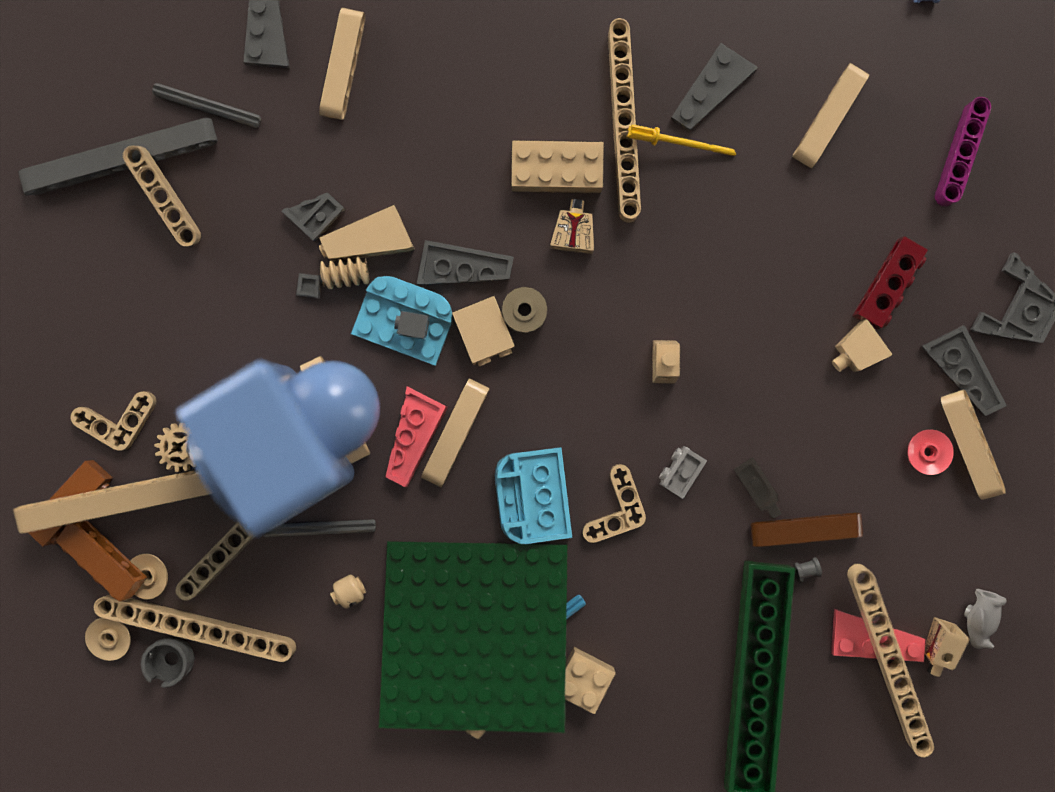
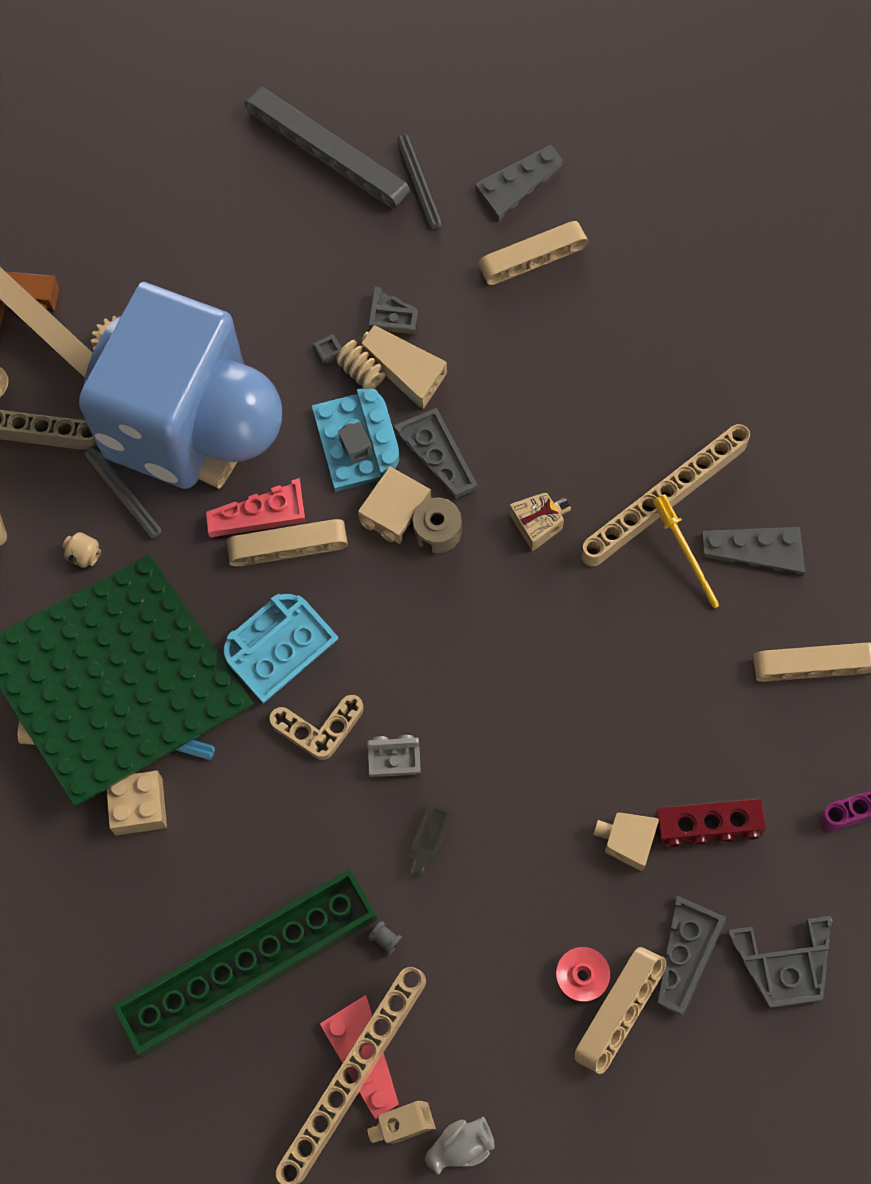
camera: 55 degrees right, 20 degrees down
(115, 430) = (96, 286): tan beam -> none
(152, 190) = (317, 183): tan beam -> none
(557, 166) = (582, 467): tan brick -> none
(666, 361) = (483, 670): tan torso -> none
(807, 529) = (423, 910): reddish brown beam -> none

